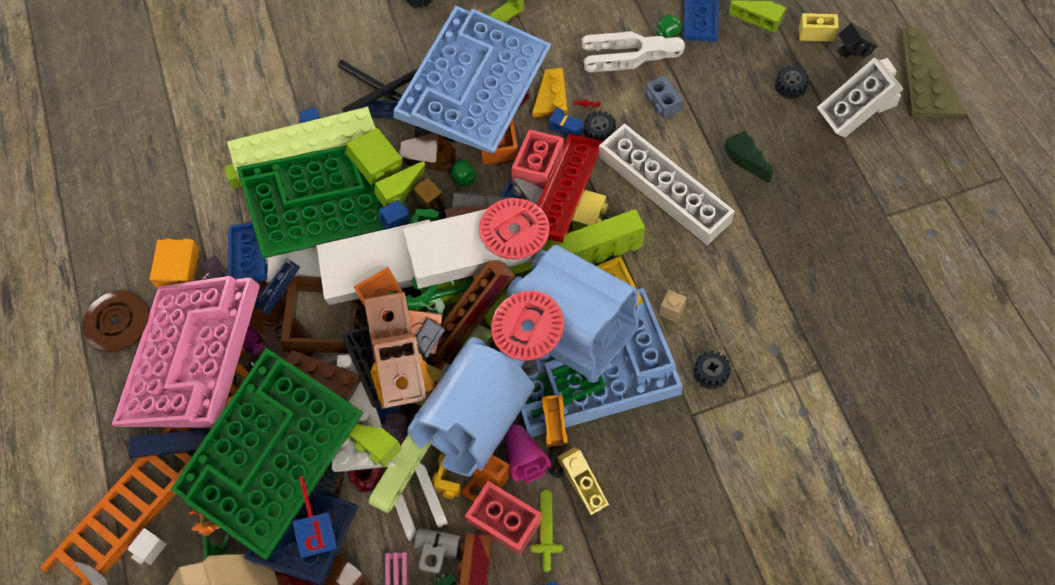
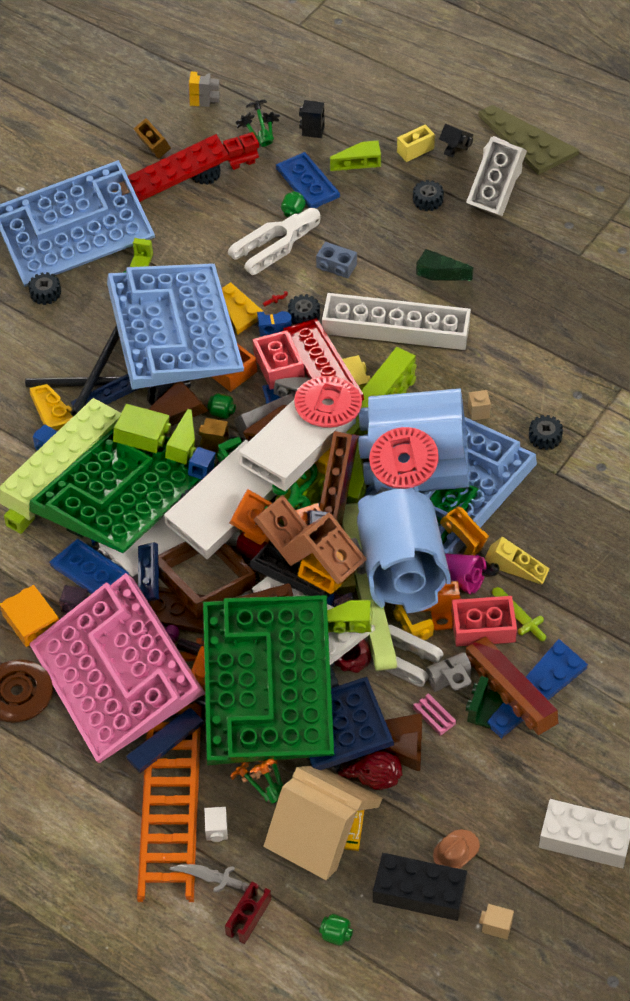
camera: 40 degrees left, 10 degrees down
(313, 533) = (356, 709): blue piece -> none
(337, 95) = (50, 407): none -> yellow wing

